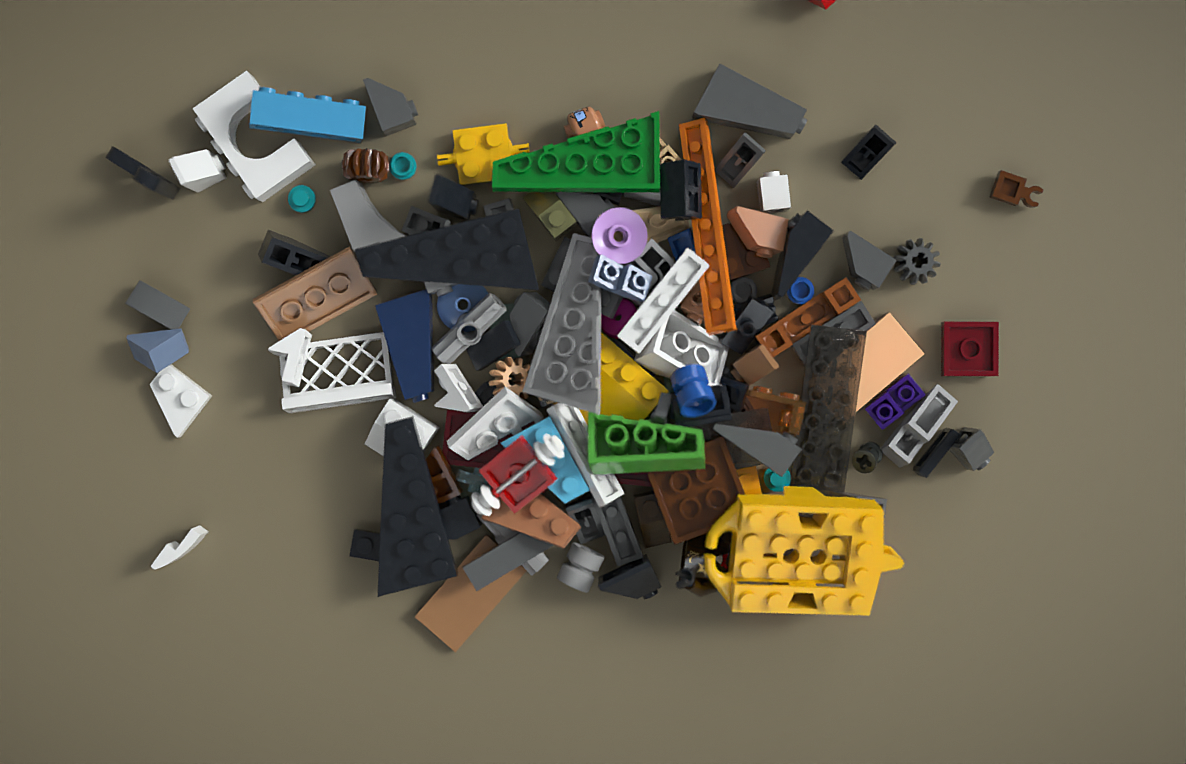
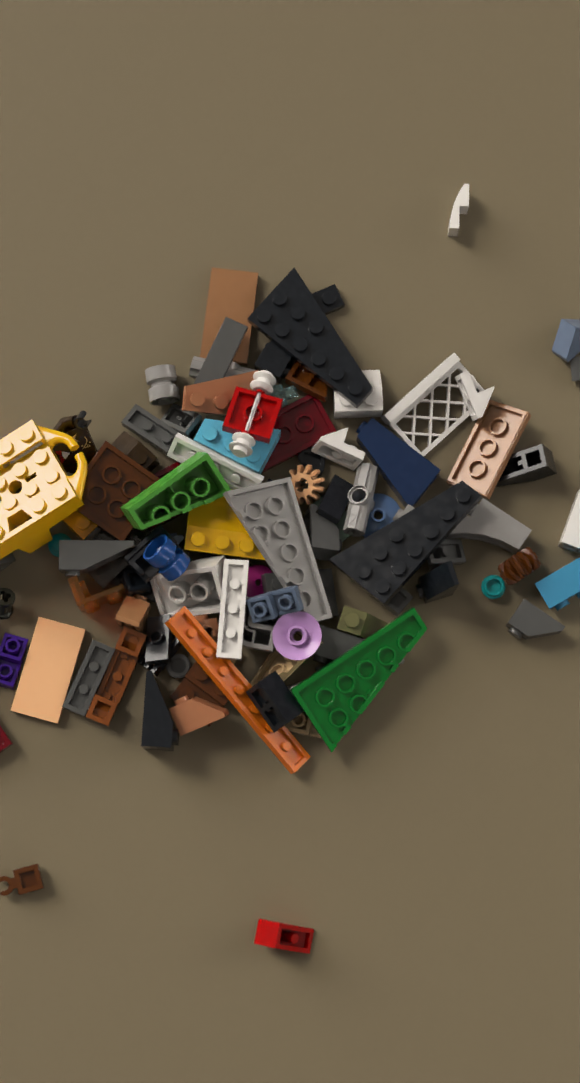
camera: 145 degrees right, 10 degrees down
(178, 398) = (534, 313): white wing -> none
(301, 198) = (549, 513): teal plate -> none
(476, 151) = (444, 636): yellow plate -> none
(498, 418) = (296, 445): white wing -> none
(583, 121) = (381, 707): nougat head -> none
(631, 580) = (119, 399): black slope -> none
(663, 411) = (177, 528): dark grey plate -> none
(682, 241) = (247, 667): blue tile -> none
(739, 160) = (247, 759): dark grey slope -> none
(749, 106) = (269, 805): dark grey slope -> none
(773, 192) = (205, 753): white brick -> none
(801, 291) = (134, 694): blue plate -> none
(831, 398) = (57, 619): clear smoke plate -> none
(866, 262) = (98, 748): dark grey slope -> none
(868, 152) = (154, 831): black slope -> none
(927, 261) = (70, 777): dark grey gear -> none

